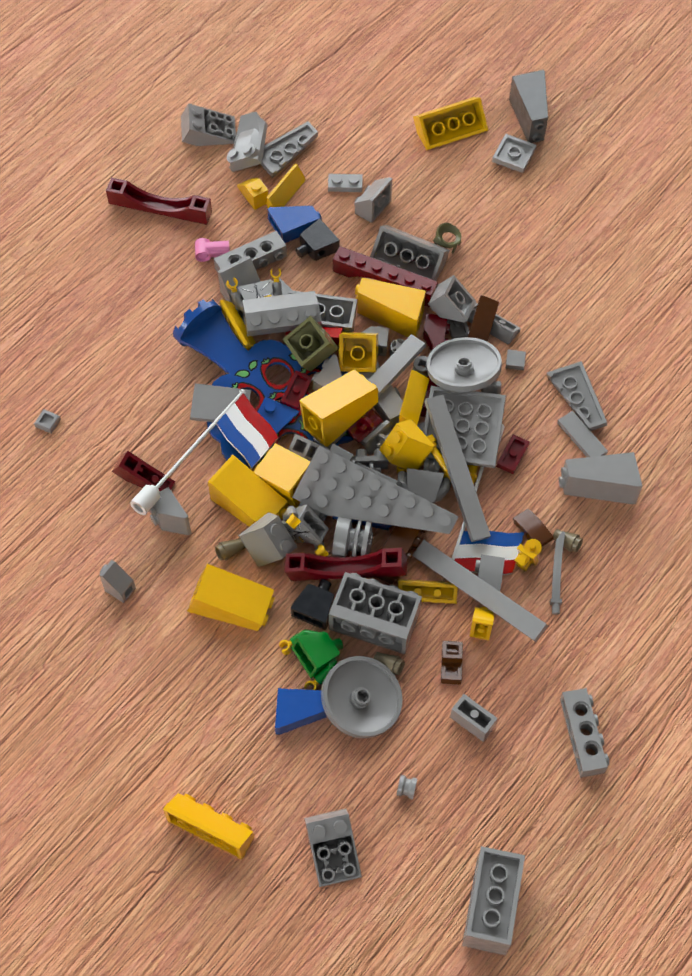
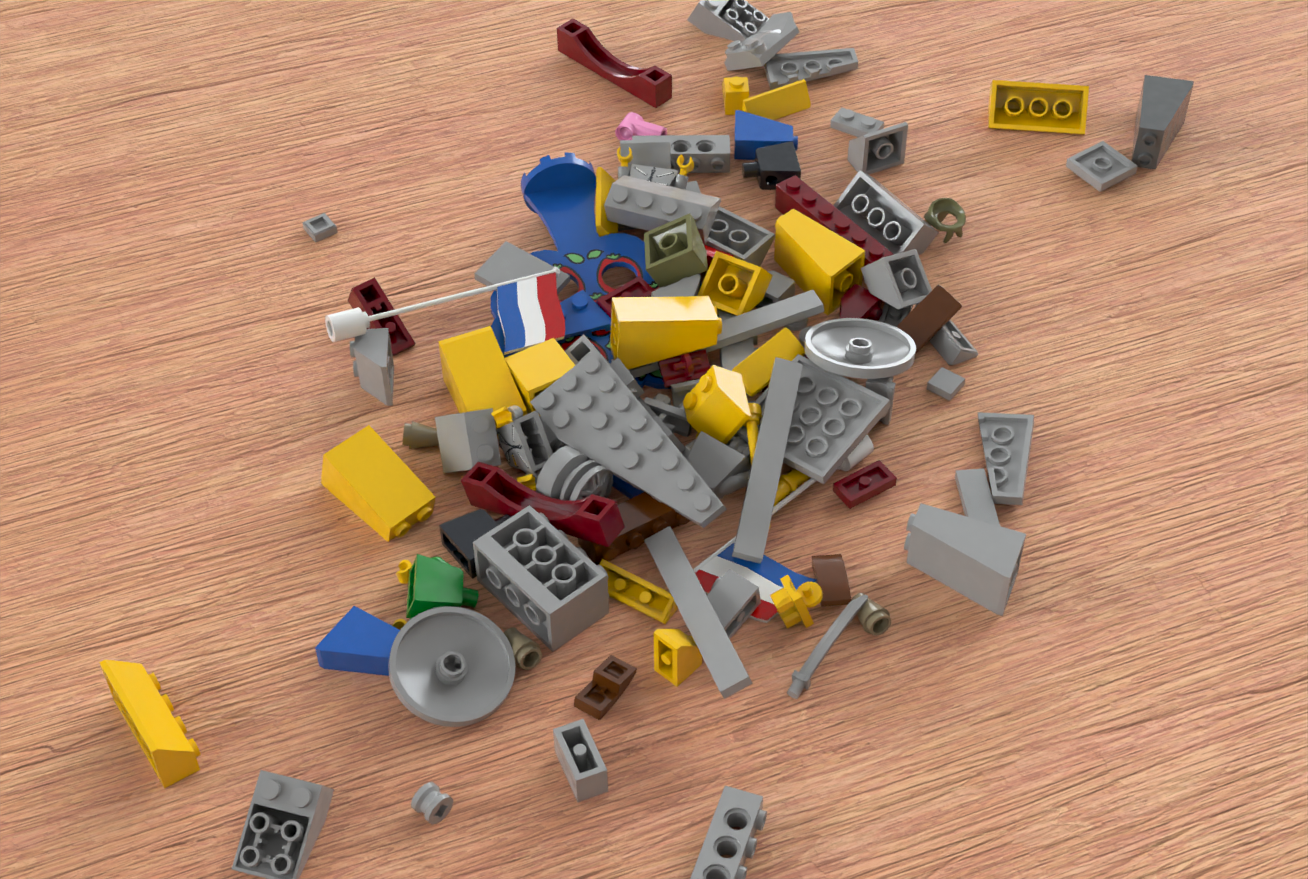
camera: 30 degrees right, 15 degrees down
(116, 581) = (258, 408): light grey slope -> none

